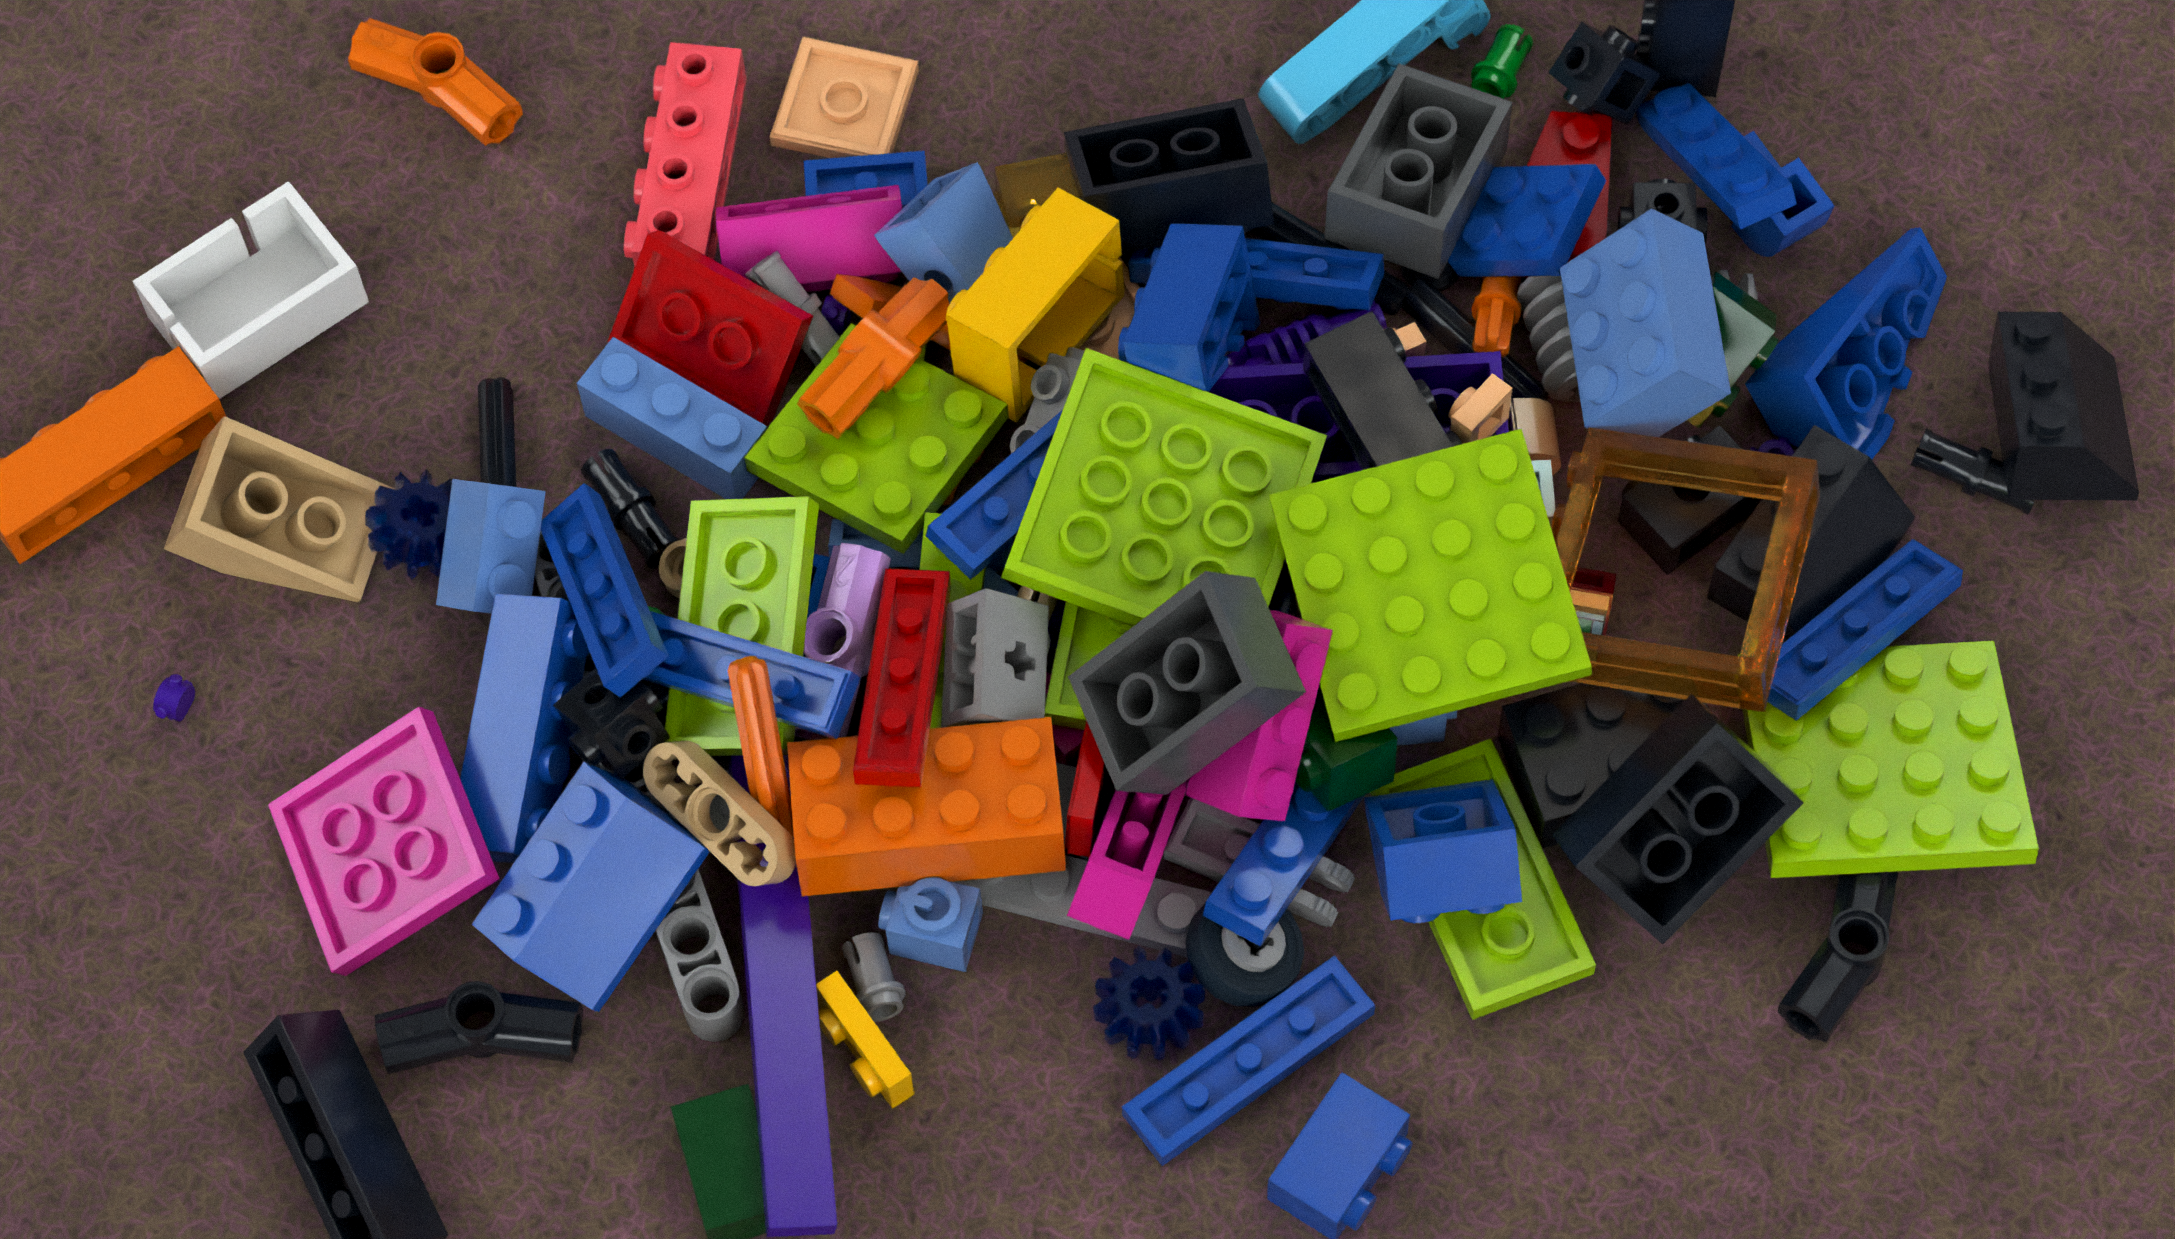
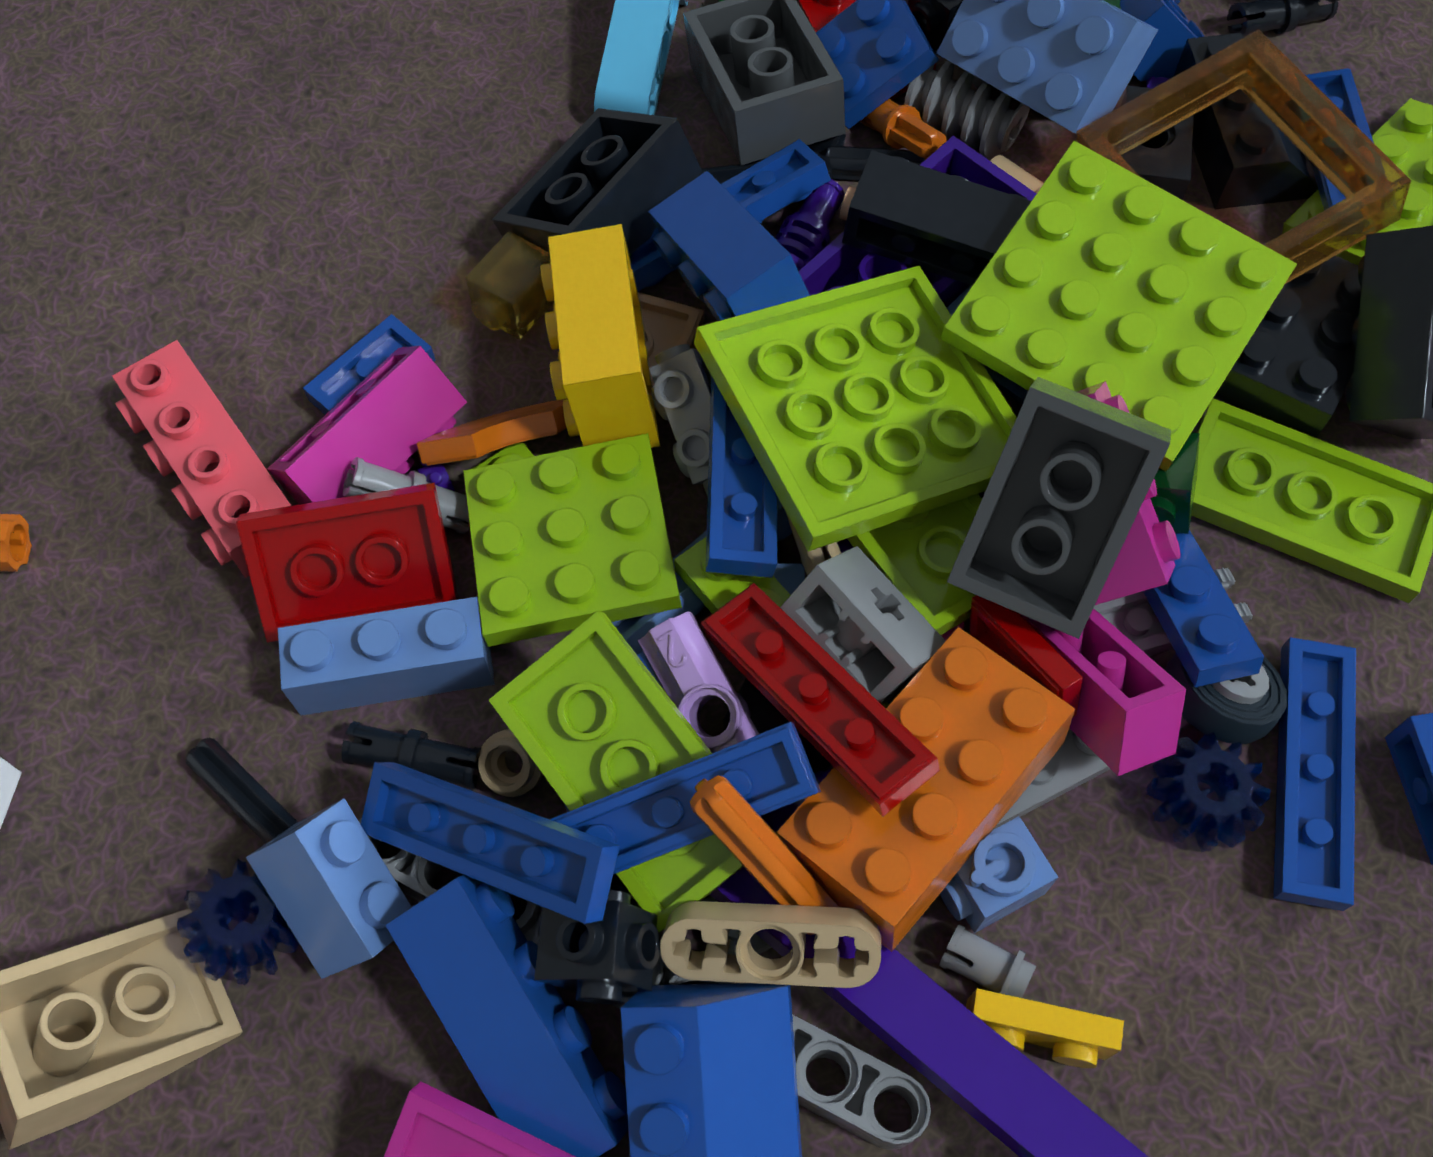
camera: 45 degrees left, 0 degrees up
(843, 101) = (288, 330): light nougat tile -> none
(875, 356) = (523, 473): orange piece -> none
(947, 231) = (485, 350): medium blue torso -> none
(1444, 851) = (1292, 491): blue slope -> none
(1481, 411) = (1004, 164): light nougat plate -> none

